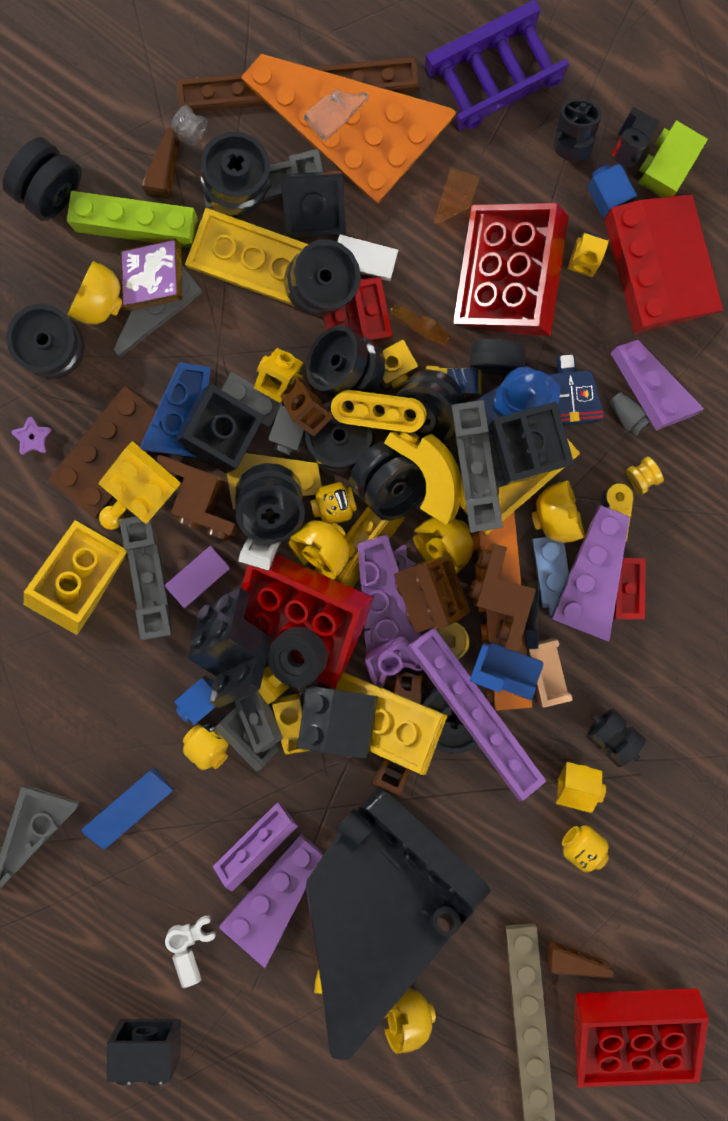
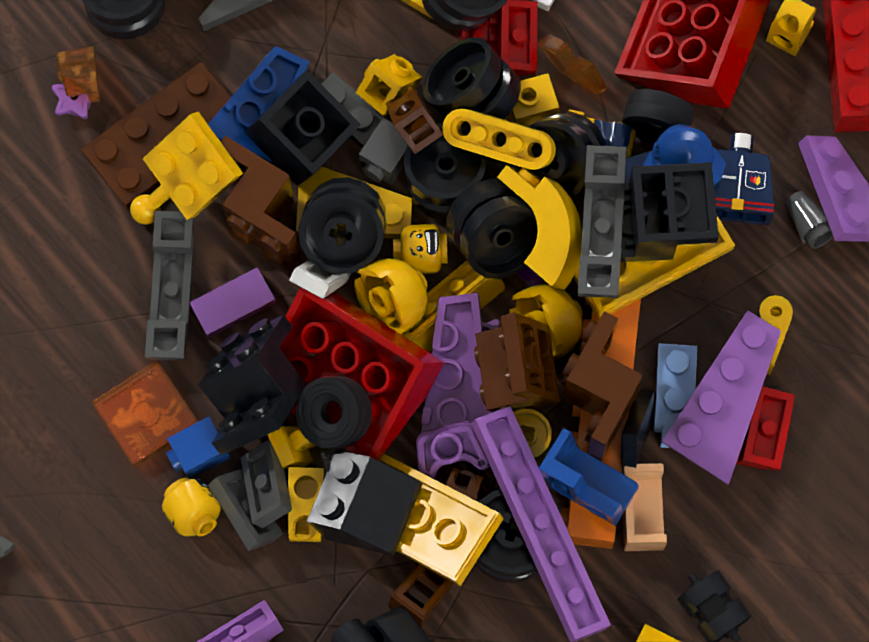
camera: 15 degrees right, 15 degrees down
(29, 417) = (79, 72): none -> clear orange slope
(74, 577) = (81, 270): yellow slope -> none
(127, 809) = (72, 566): blue slope -> none
(152, 678) = (144, 413): none -> clear orange tile
(558, 514) = (696, 316): yellow cylinder -> none
(644, 475) = (813, 295): yellow wheel -> none

